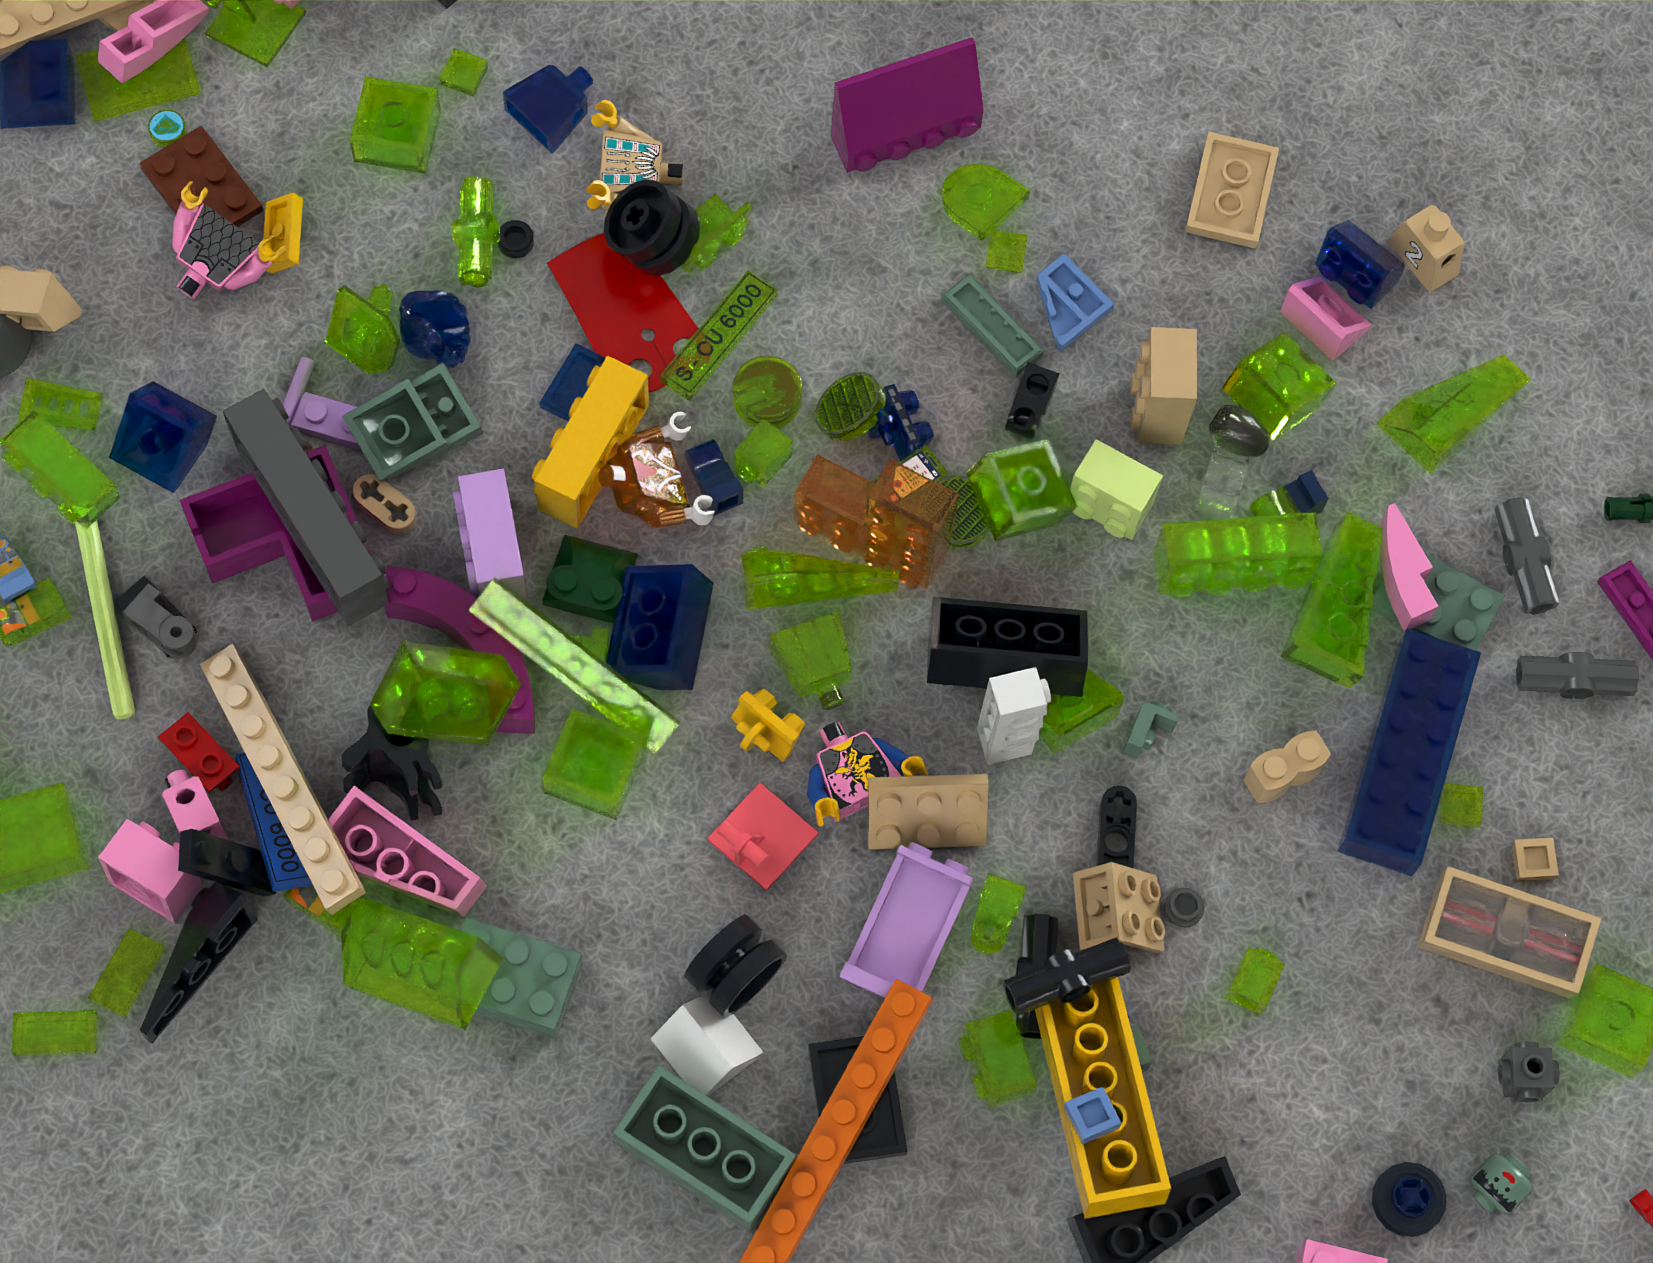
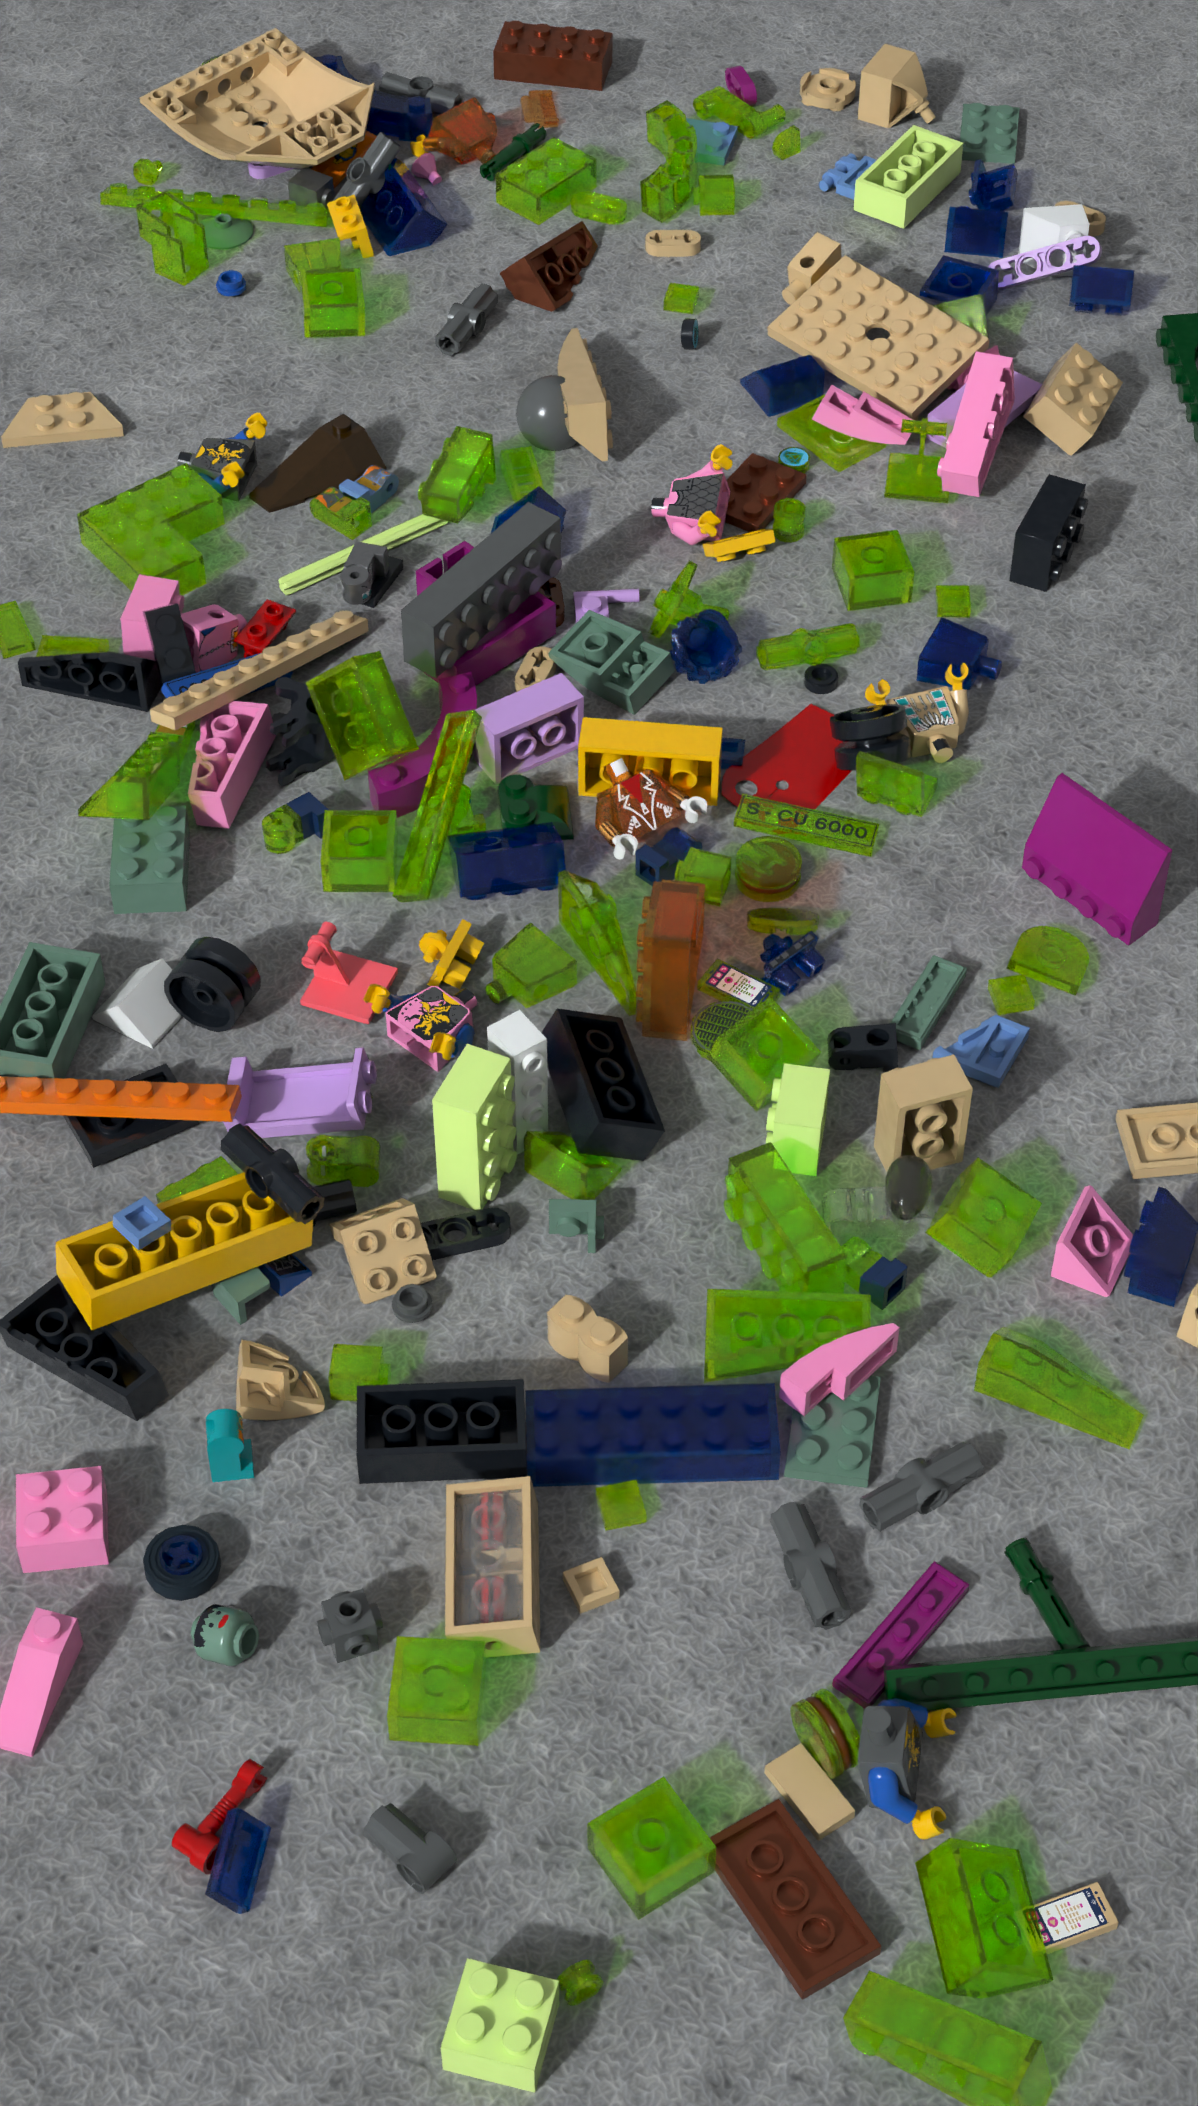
camera: 75 degrees right, 20 degrees down
(270, 180) = (789, 519): none -> clear neon green wheel
(517, 829) = (293, 823): none -> leg
(927, 811) = (411, 1073): tan plate -> none
(1054, 774) = (474, 1128): none -> yellowish green brick
(1234, 1063) = (271, 1387): none -> tan brick
(1308, 1121) = (227, 1450): none -> teal leg
(1353, 927) = (441, 1431): none -> black brick

